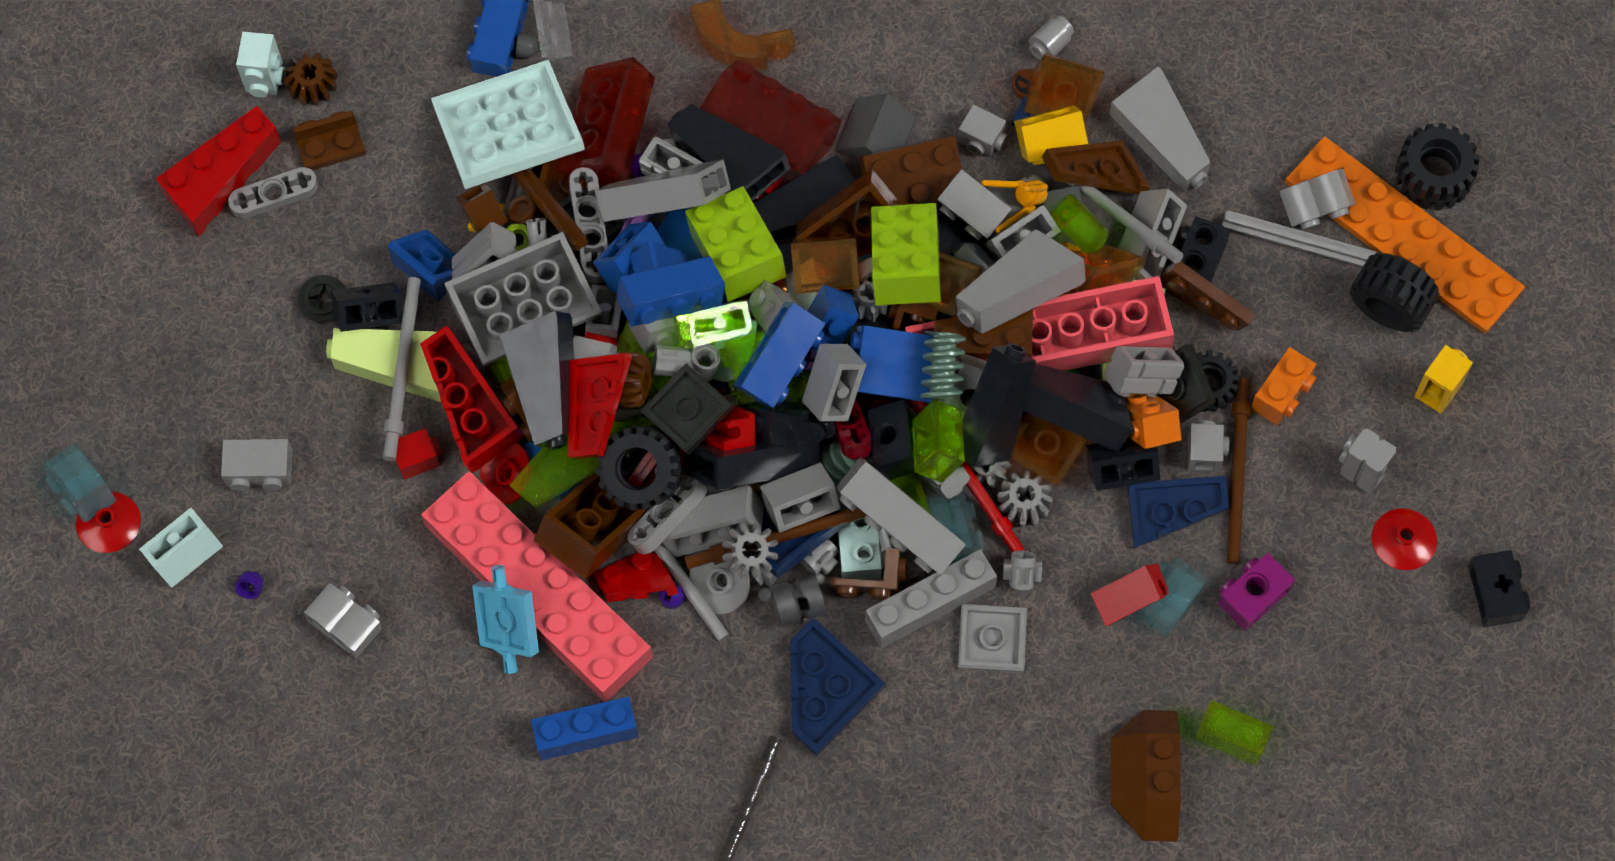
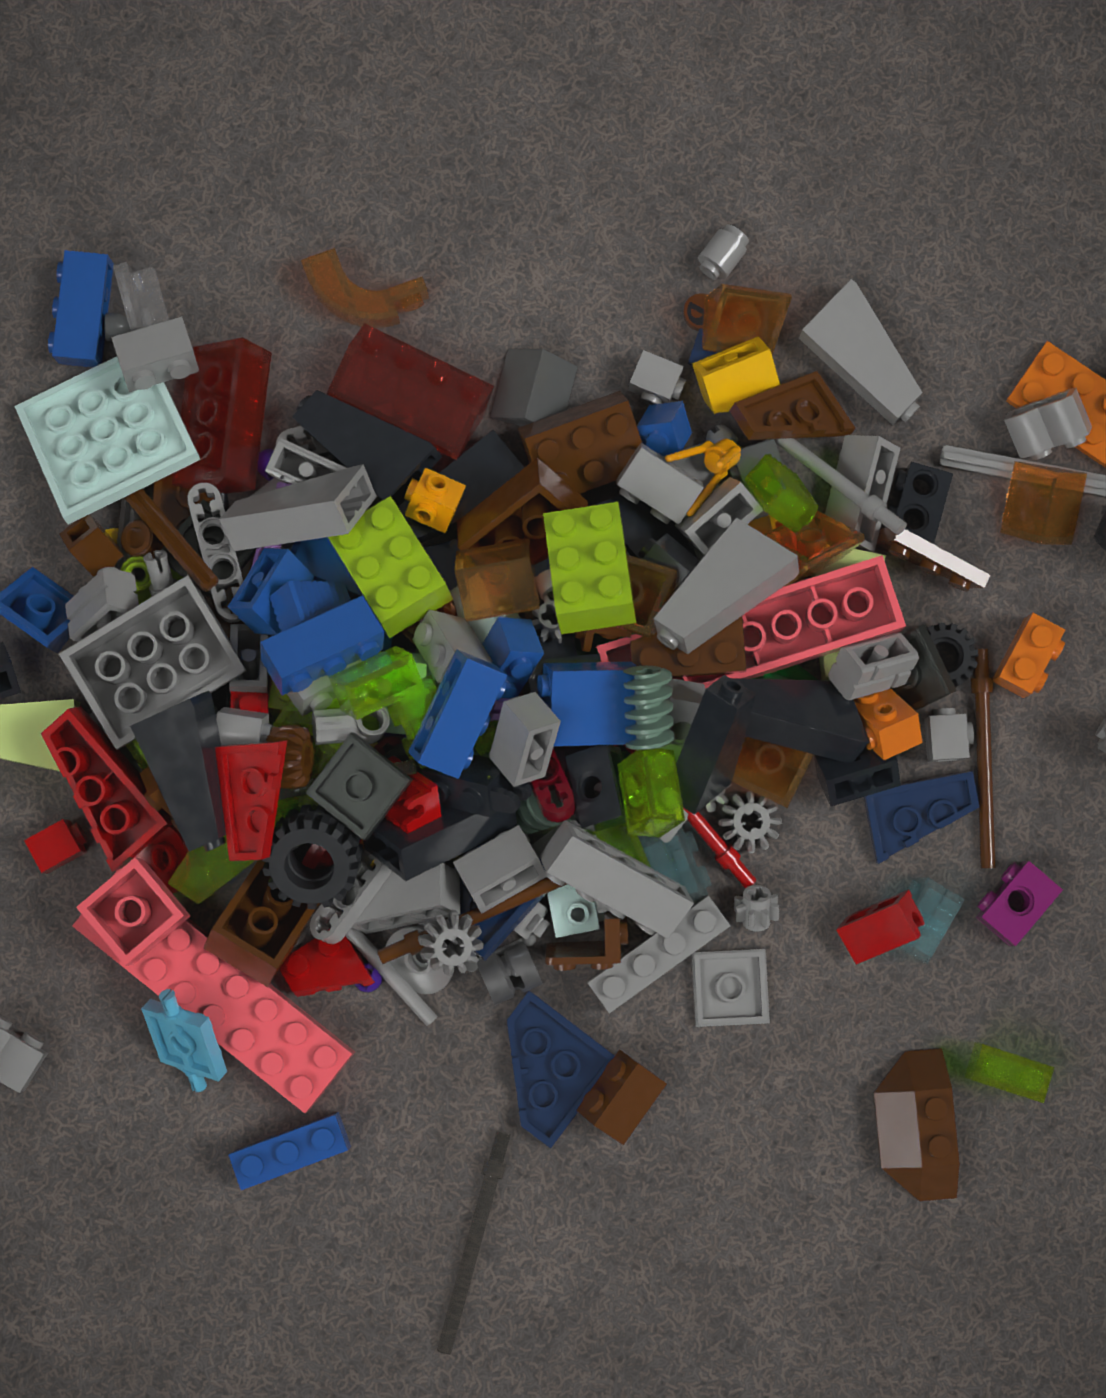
camera: 10 degrees left, 15 degrees up
(393, 425) = (26, 824): light grey bar -> none
(478, 498) = (133, 911): none -> coral brick
(557, 64) = (155, 354): none -> light grey brick
(779, 198) = (433, 499): none -> light orange brick
(884, 714) = (621, 1097): none -> reddish brown brick
(986, 165) = (665, 427): none -> blue brick
(1309, 264) = (1043, 503): none -> clear orange slope

